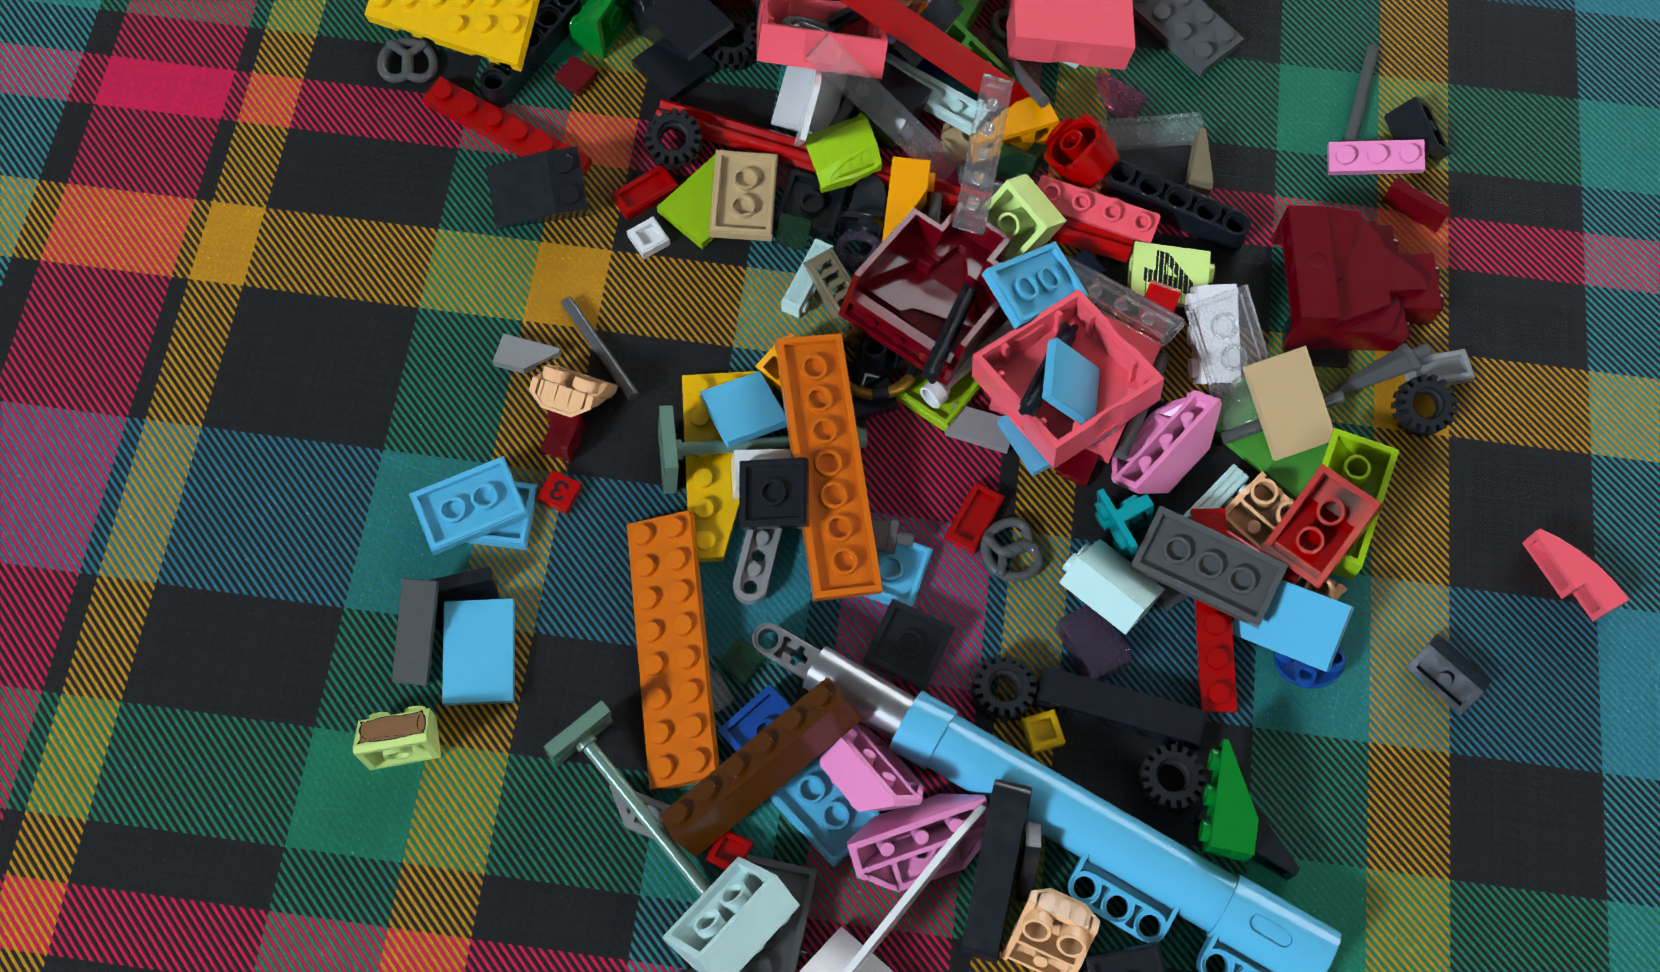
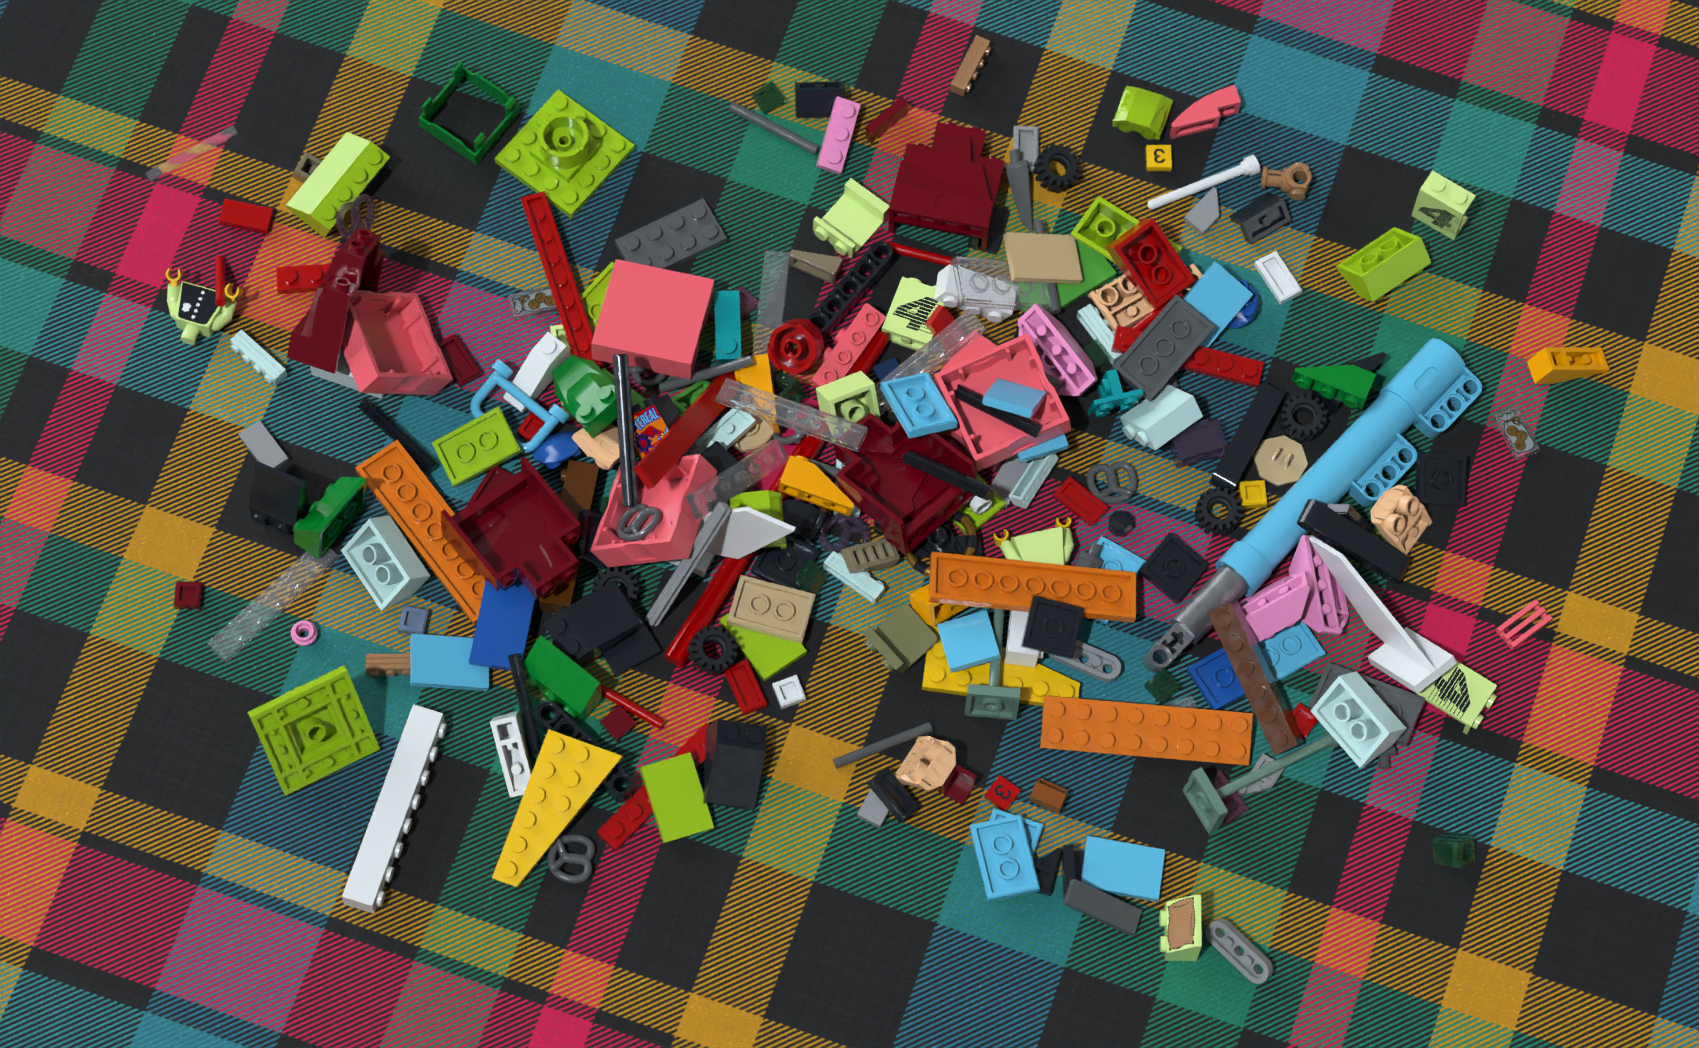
camera: 80 degrees left, 0 degrees up
(382, 820) = (1229, 945): none -> light grey plate
(461, 559) = (1046, 870): none -> black tile
(488, 138) = (676, 797): none -> lime tile
(531, 362) = (893, 795): none -> black tile
(558, 542) = (1048, 795): none -> dark orange piece
(589, 779) = (1233, 802): none -> clear pink tile
(599, 83) = (632, 707): none -> red bar
(731, 335) = (900, 639): none -> olive bracket
(763, 76) = (687, 565): none -> light grey axle
(891, 474) = (1043, 546): none -> yellowish green torso
(956, 569) = (1120, 523): none -> black tile
(986, 452) = (1032, 480): none -> light aqua piece
(1085, 85) = (727, 326): none -> teal slope
(1103, 761) = (1280, 460): none -> tan piece
(1180, 498) = (1097, 354): none -> clear green tile
(1252, 271) = (920, 254): none -> red bar
(1265, 192) = (852, 219): none -> yellowish green panel
(1369, 713) = (1278, 277): none -> white tile
(1397, 83) = (768, 98): none -> clear green tile
(1429, 600) = (1205, 213): none -> light grey tile
(1439, 854) = (1384, 264): none -> lime slope
(1487, 529) = (1158, 158): none -> yellow tile
(1516, 643) = (1248, 166): none -> white piece
(1517, 694) = (1285, 180): none -> medium nougat connector
(1527, 286) = (968, 69): none -> medium nougat piece
(1544, 498) = (1142, 112): none -> lime slope
(1557, 915) = (1442, 205): none -> yellowish green panel

